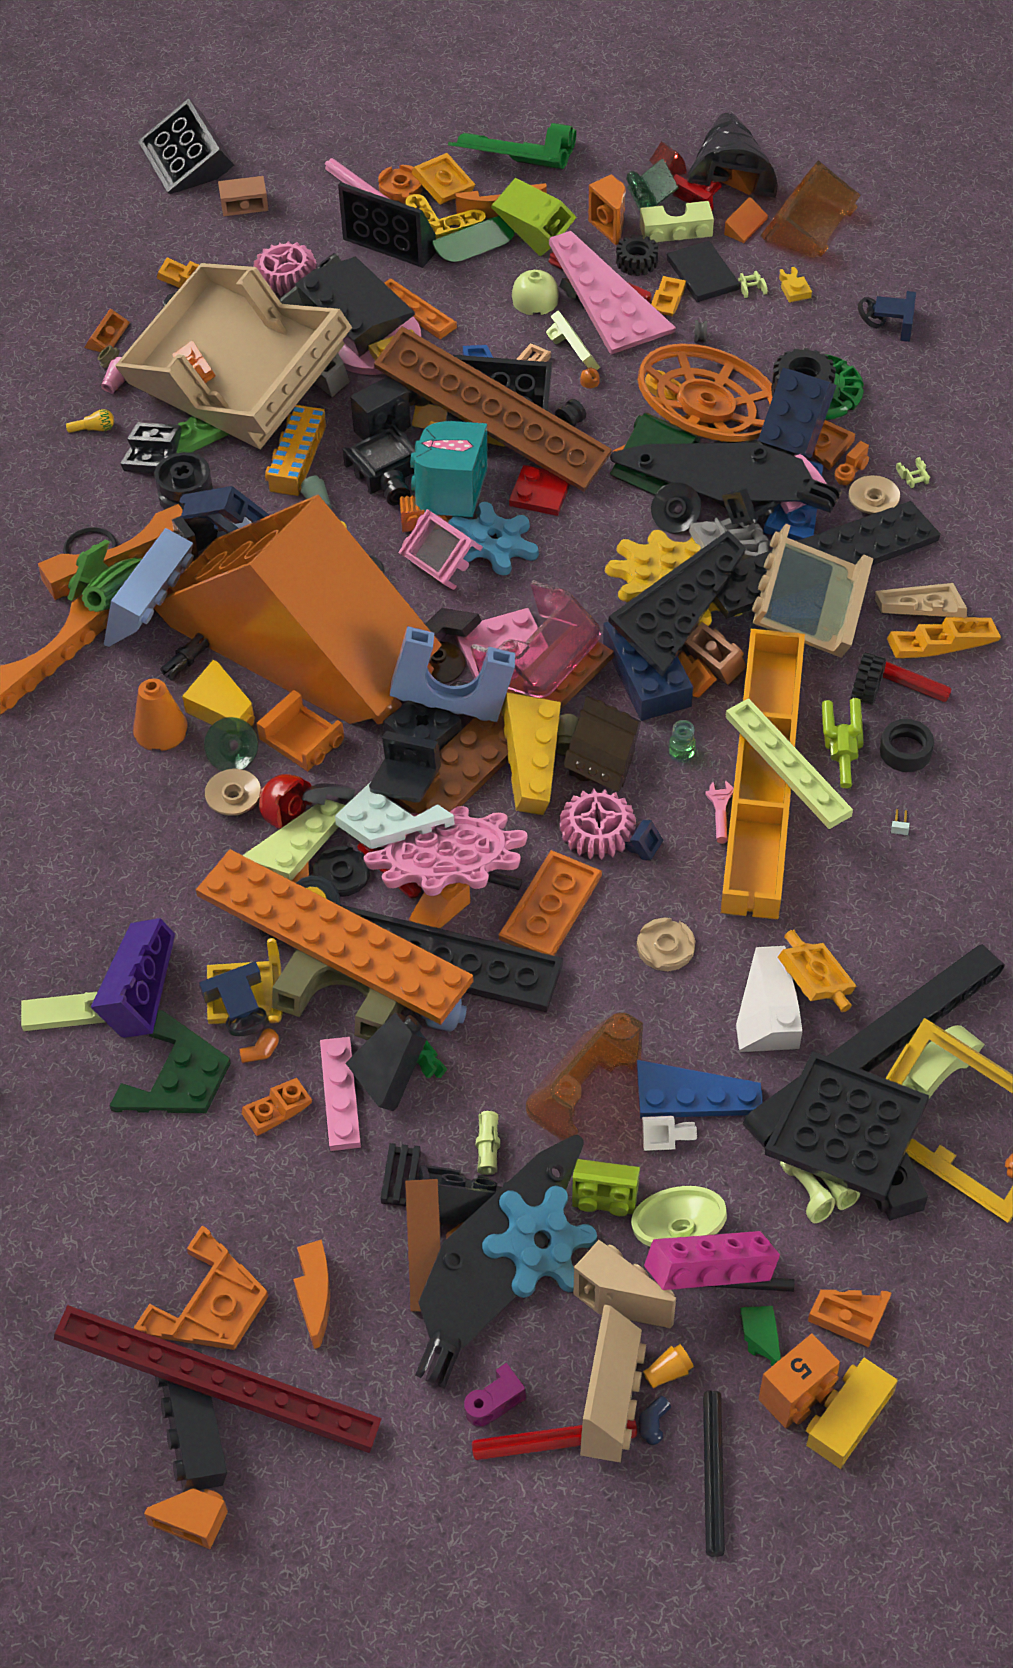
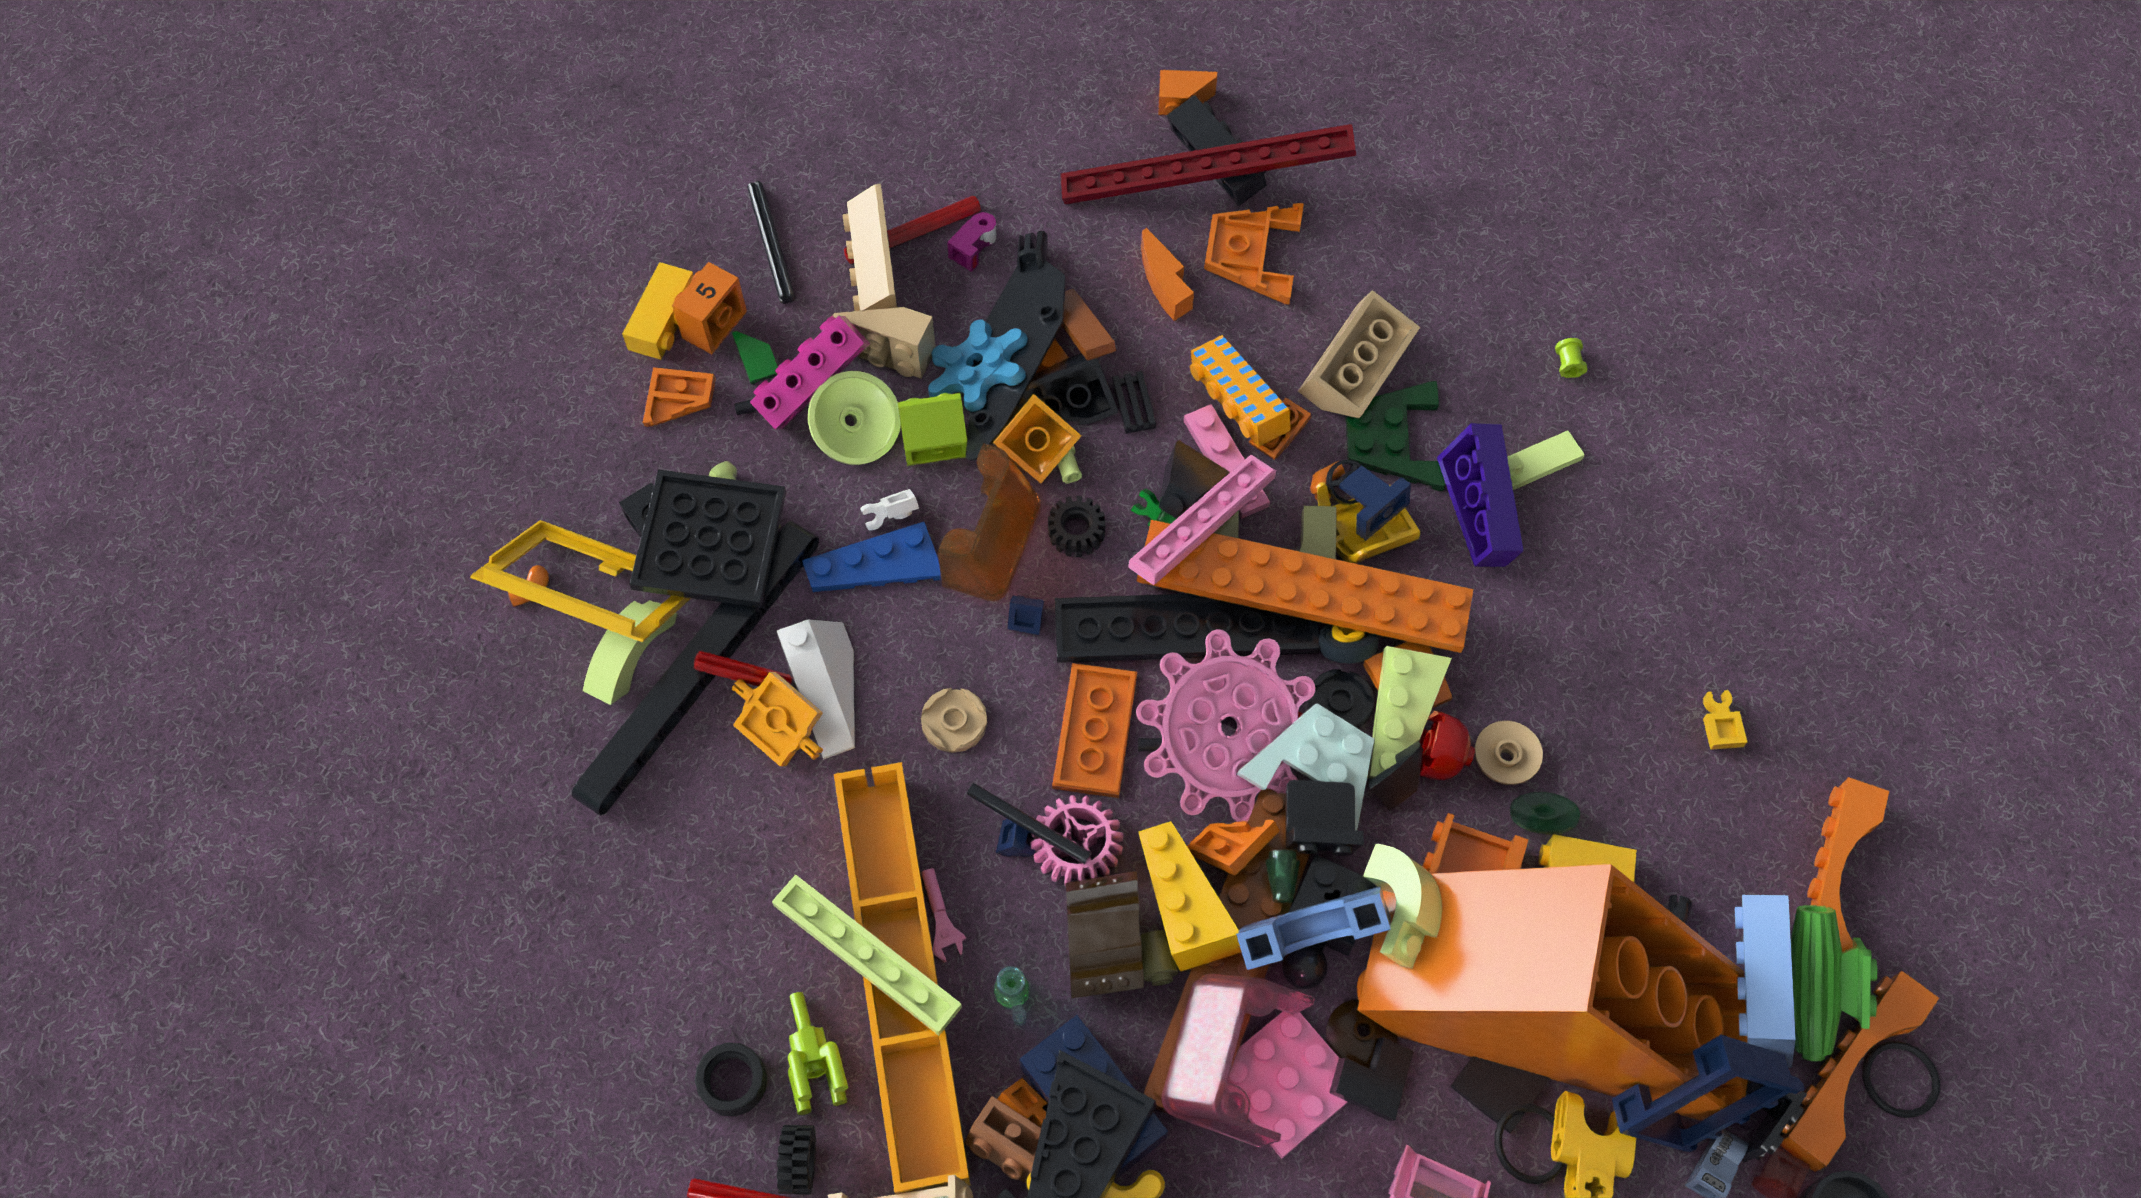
camera: 160 degrees right, 10 degrees up
(55, 767) = (1723, 727): none -> yellow plate
(158, 717) = (1647, 820): orange cone -> none
(171, 1139) = (1359, 357): none -> tan slope
(300, 1135) = (1240, 391): none -> light orange brick
(369, 675) = (1417, 902): none -> yellowish green arch
(396, 997) = (1201, 519): none -> bright pink tile
(452, 745) = (1282, 874): none -> clear green cone
(480, 781) = (1232, 844): none -> orange wing
(507, 1082) = (1076, 509): none -> black tyre
(509, 1141) = (1037, 439): none -> light orange slope
(574, 1002) = (1025, 614): none -> dark blue tile
(631, 825) = (1029, 823): none -> black bar
(649, 1420) = (836, 263): dark blue arm -> none
(669, 1366) = (830, 303): light orange cone -> none
(840, 1016) = (733, 669): none -> red axle
(900, 827) = (719, 958): light aqua piece -> none

